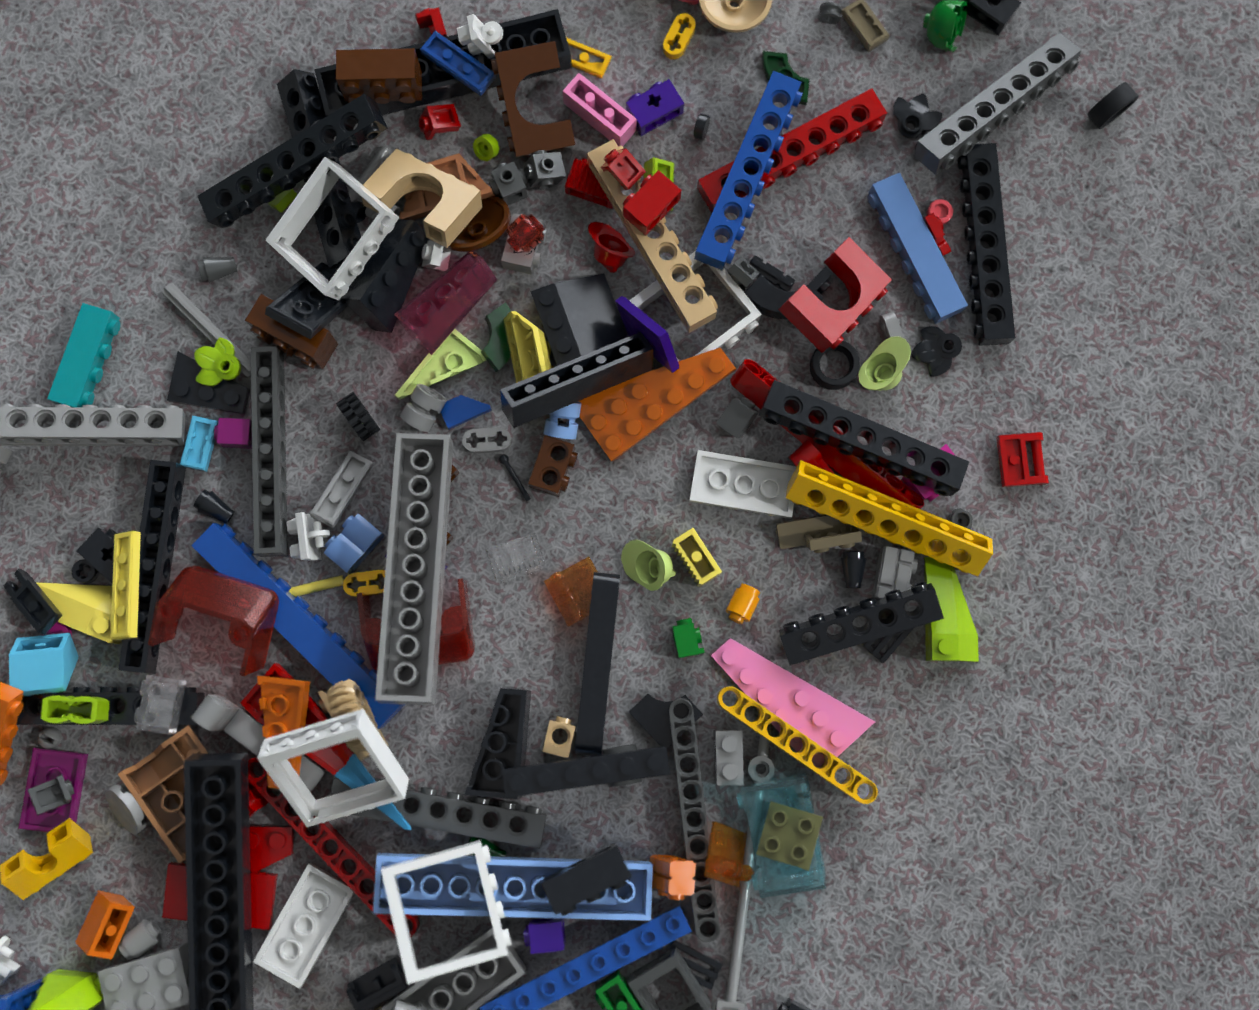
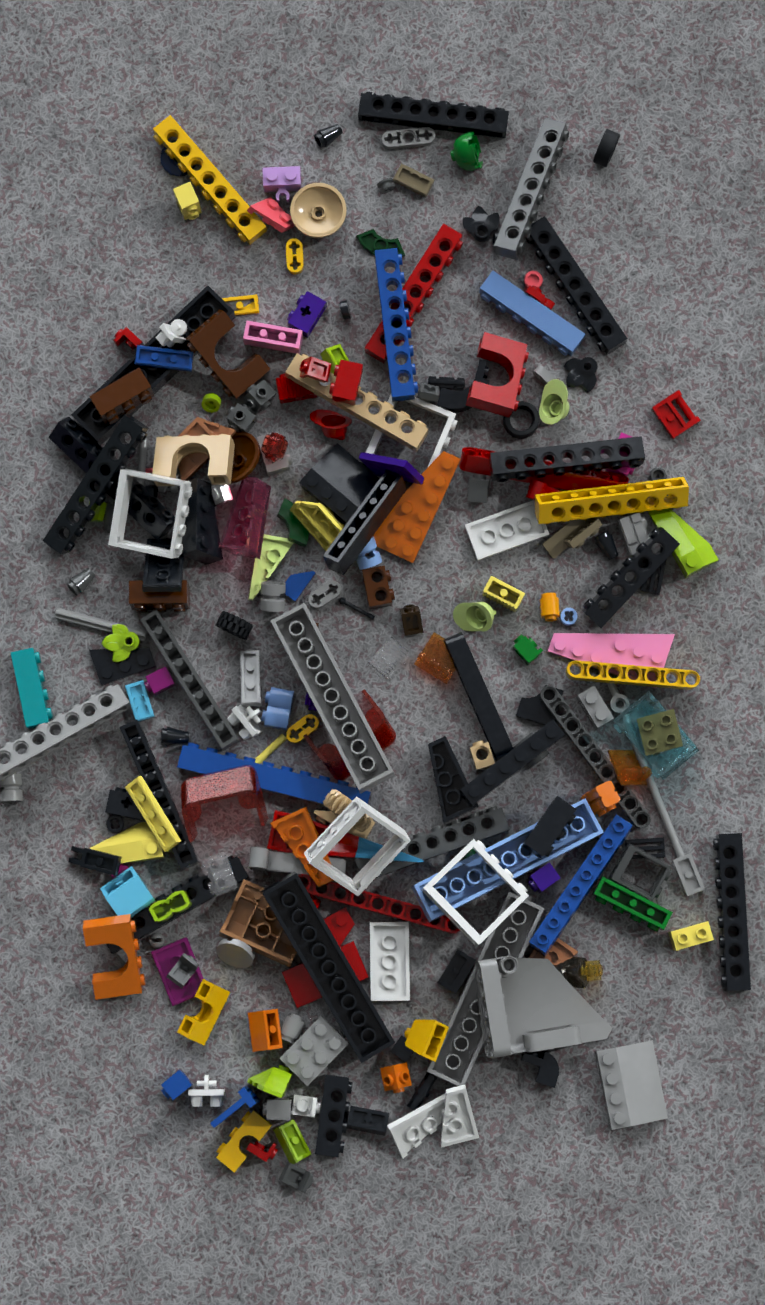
camera: 25 degrees left, 0 degrees up
(439, 120) = (169, 401): red bracket -> none
(570, 527) = (411, 620): none -> dark brown bracket
(752, 623) = (574, 617): none -> light blue bush

